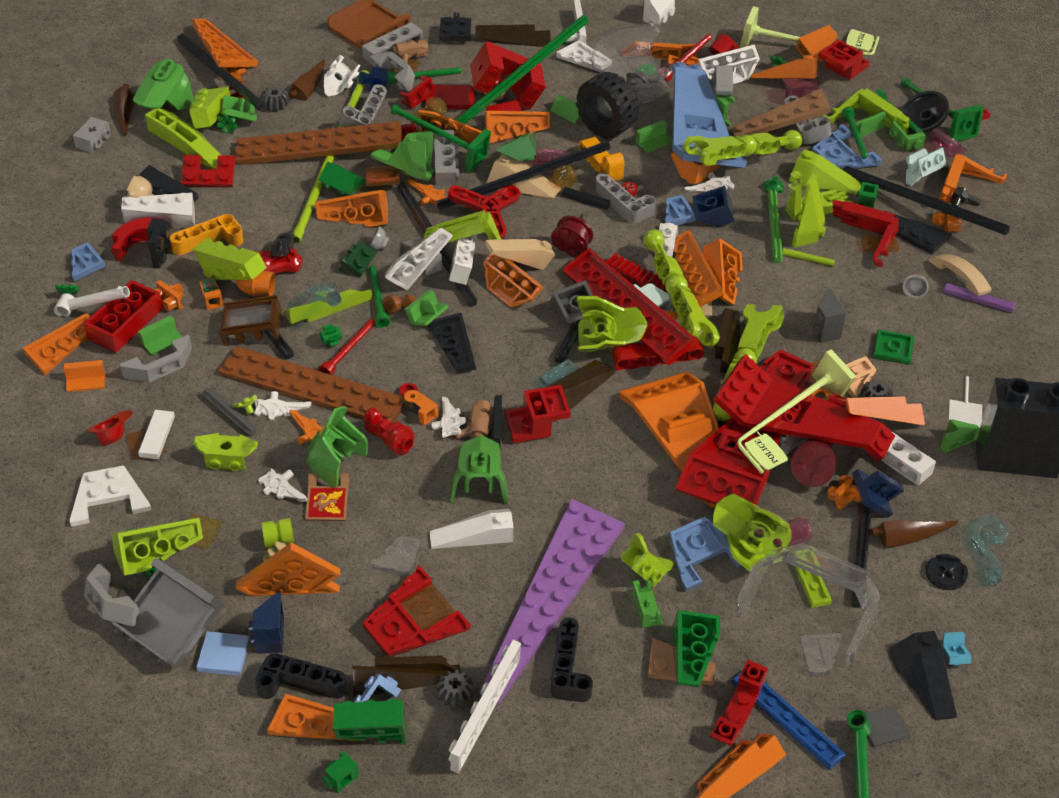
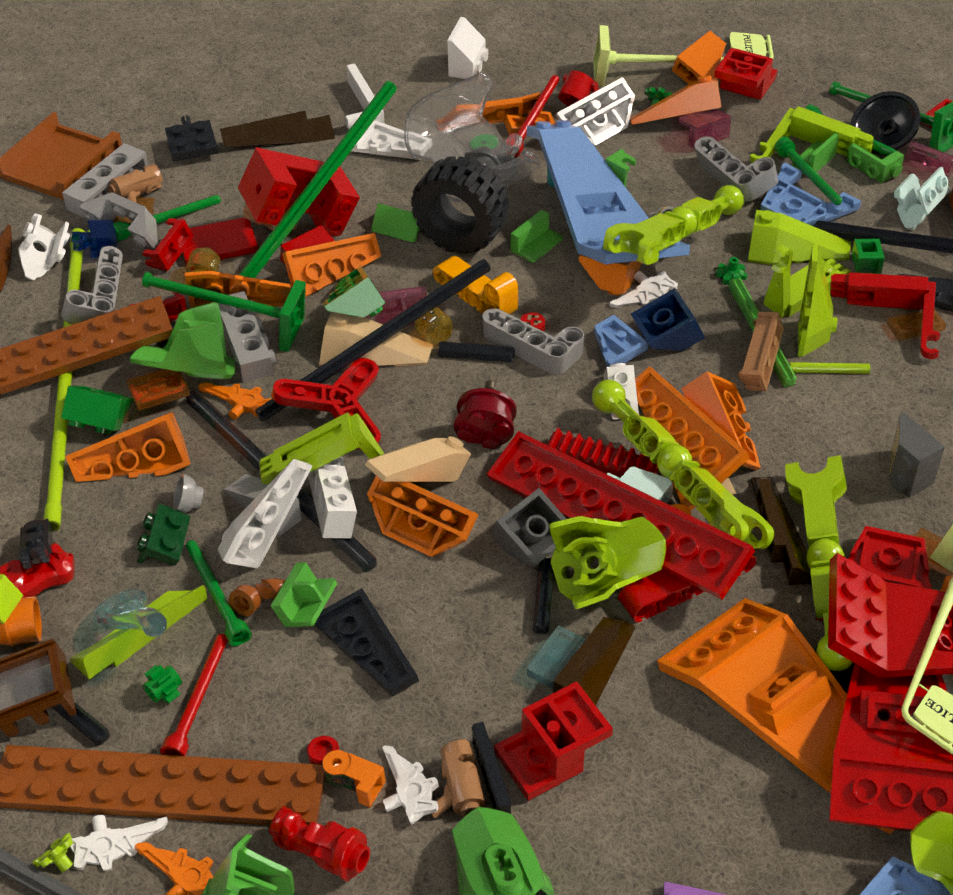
camera: 15 degrees left, 0 degrees up
(722, 80) = (610, 135): light grey beam -> none
(766, 236) = (762, 351): none -> medium nougat container
(787, 114) = (720, 158): medium nougat wing -> none

